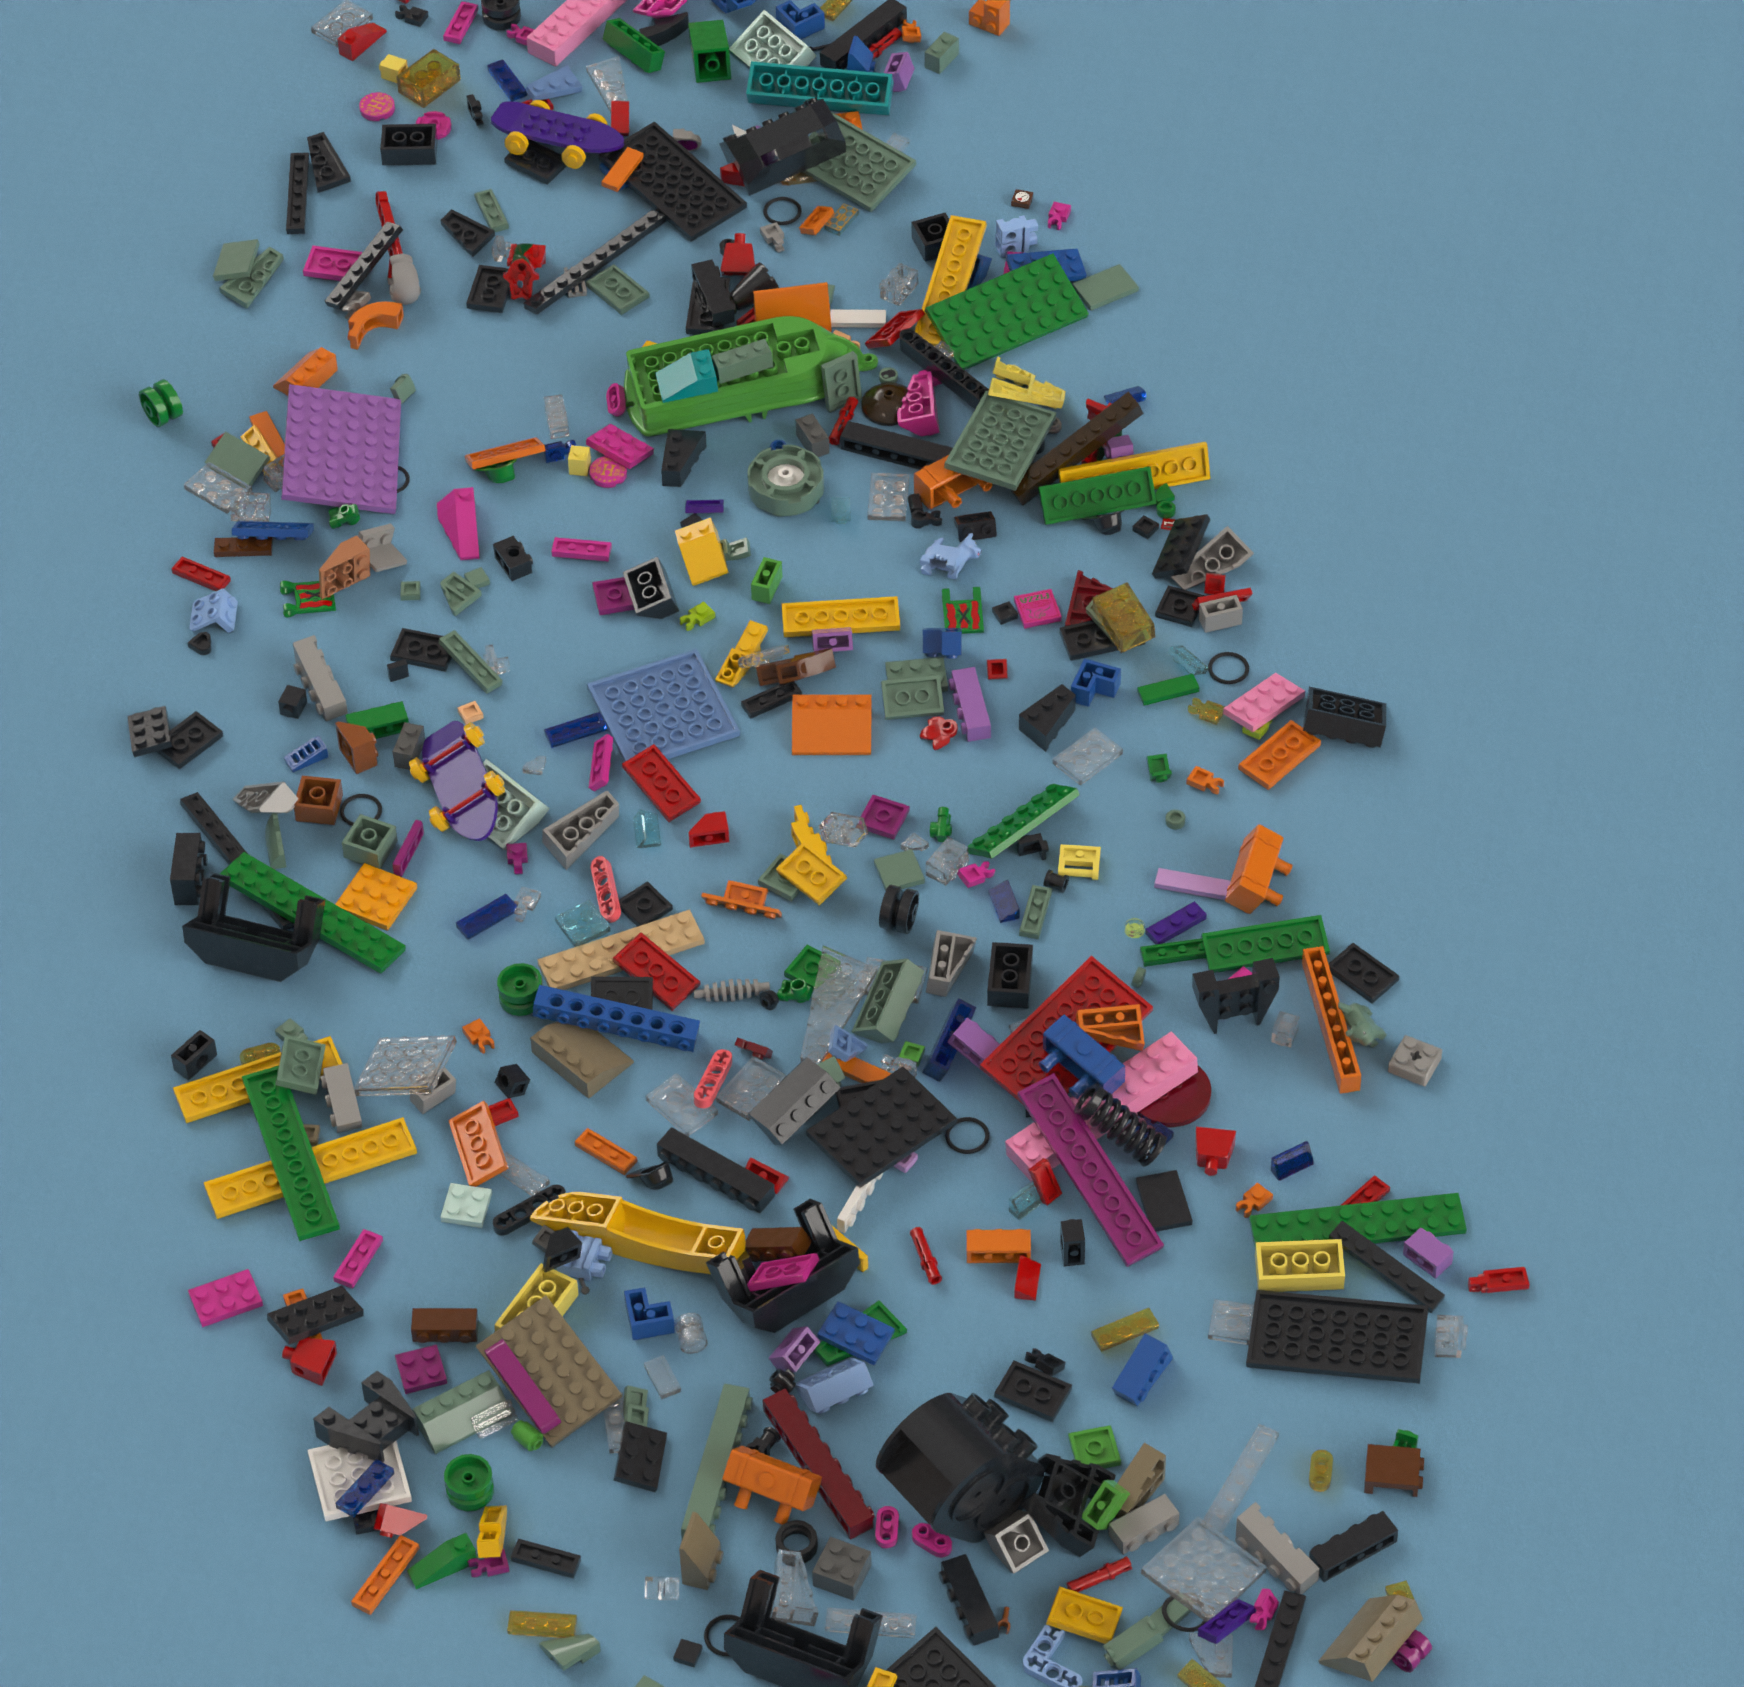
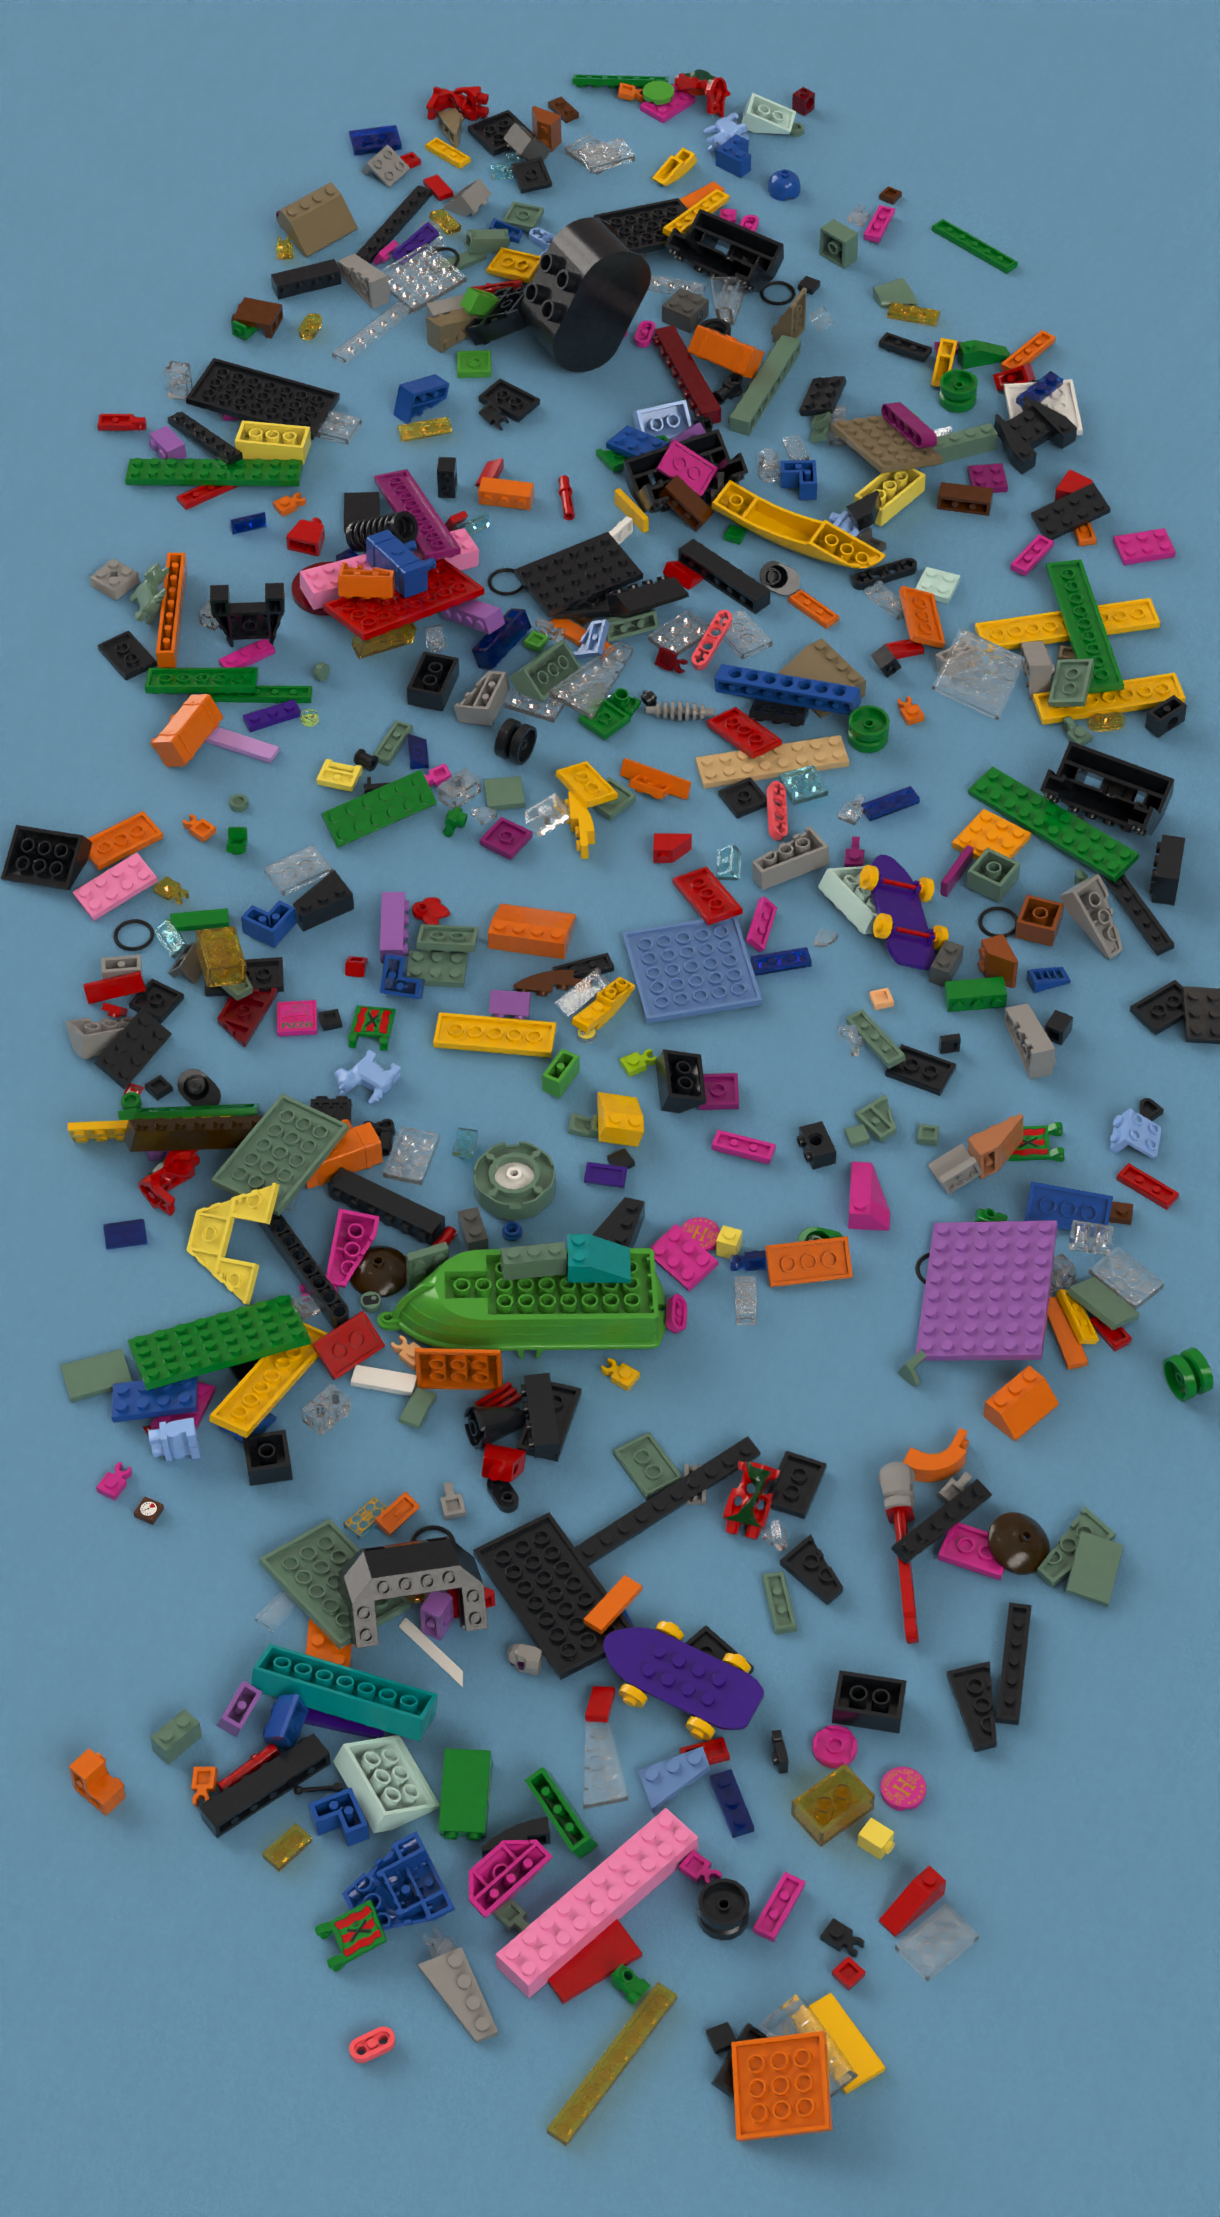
camera: 170 degrees left, 0 degrees up
(299, 268) = (1012, 1549): none -> dark brown dish
(1164, 638) = (187, 964): none -> dark grey panel

